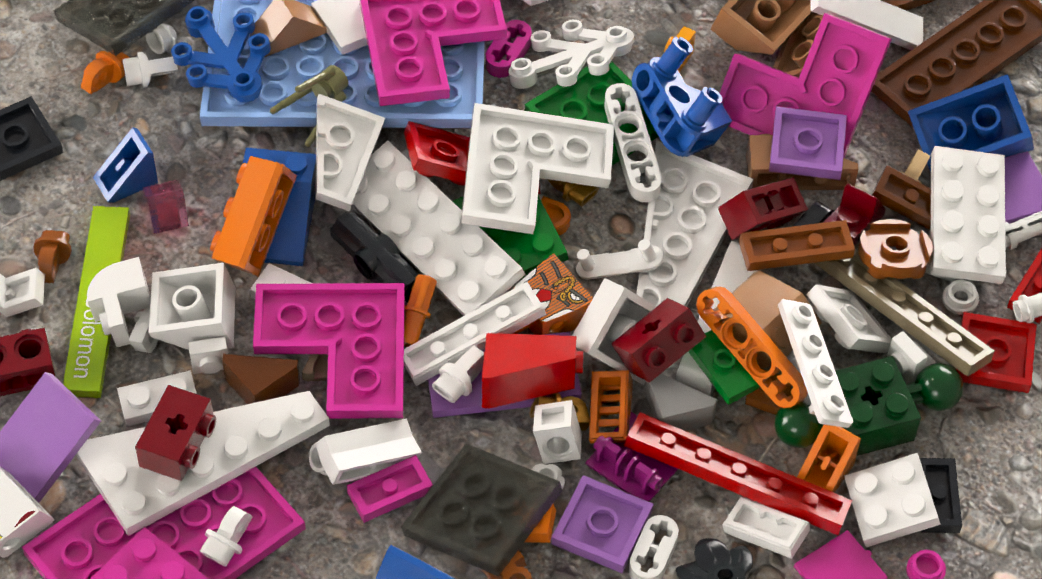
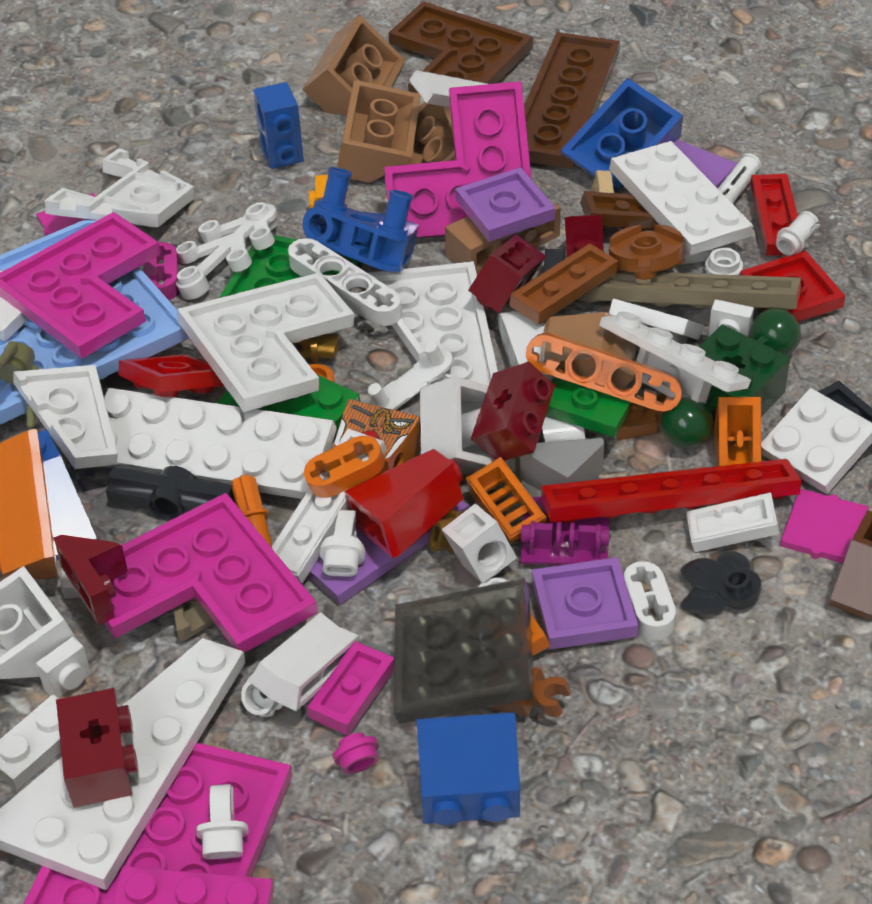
camera: 30 degrees left, 10 degrees down
(260, 377) = (133, 658): reddish brown slope -> none
(262, 292) = (91, 568): none -> dark red slope
(356, 539) = (356, 752): none -> dark pink plate
(498, 313) = (344, 466): none -> orange beam

